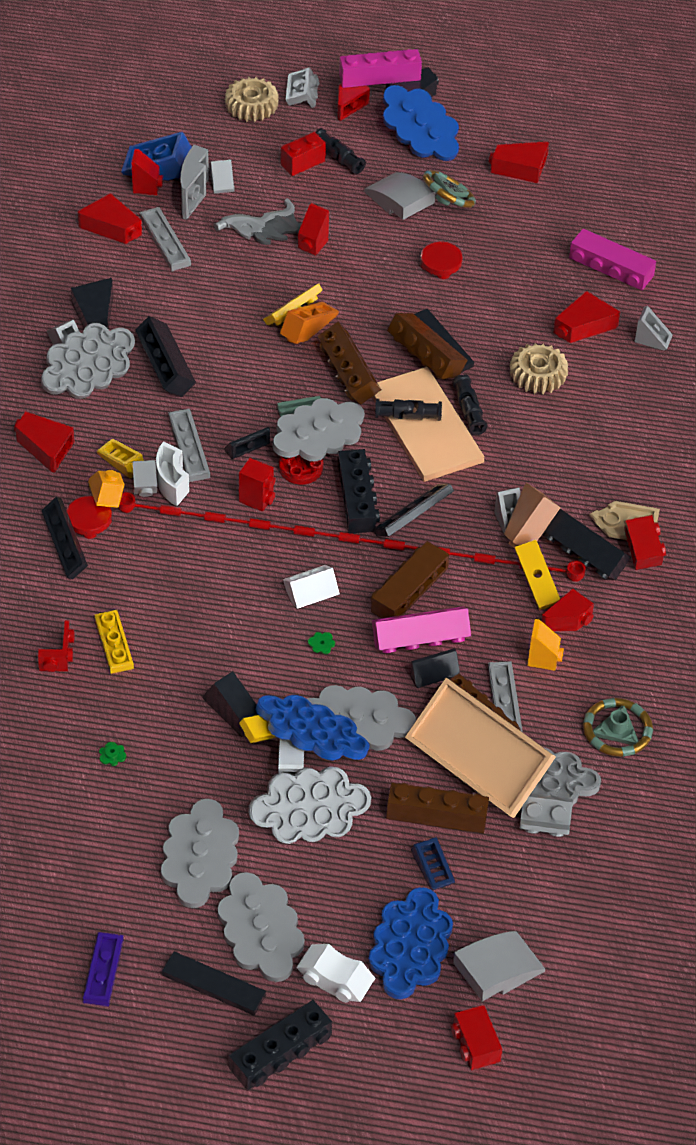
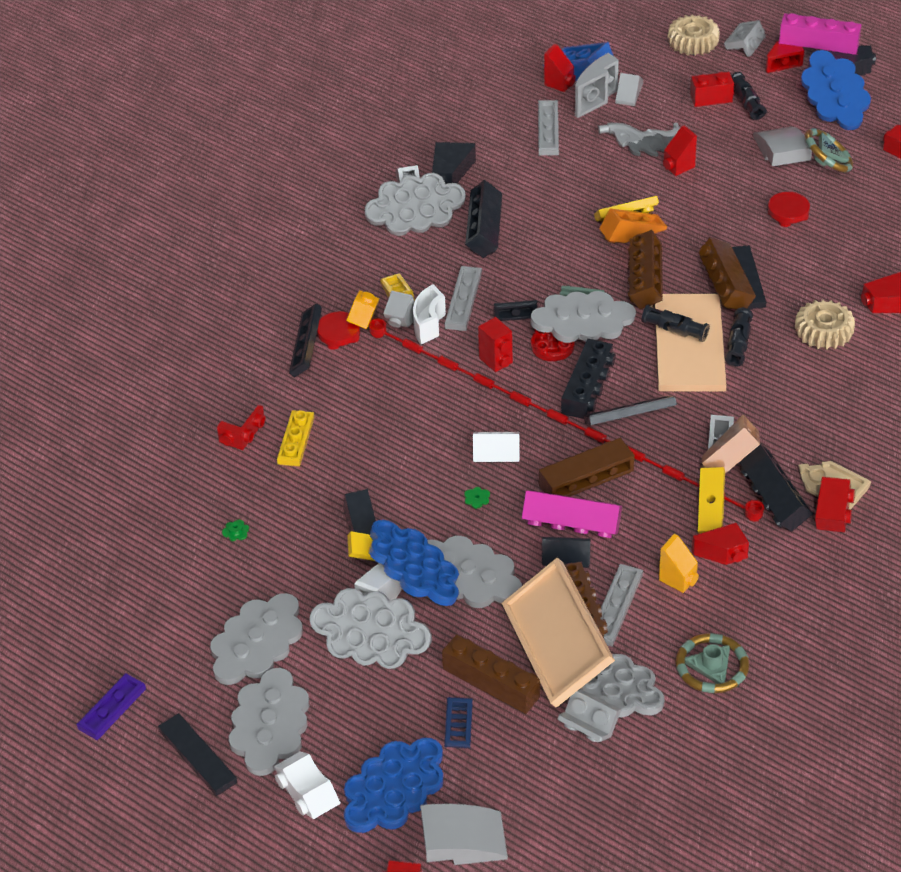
camera: 30 degrees right, 5 degrees down
(44, 439) = (341, 257): red slope -> none
(110, 219) = (507, 99): red slope -> none
(280, 1045) = (218, 829): black brick -> none

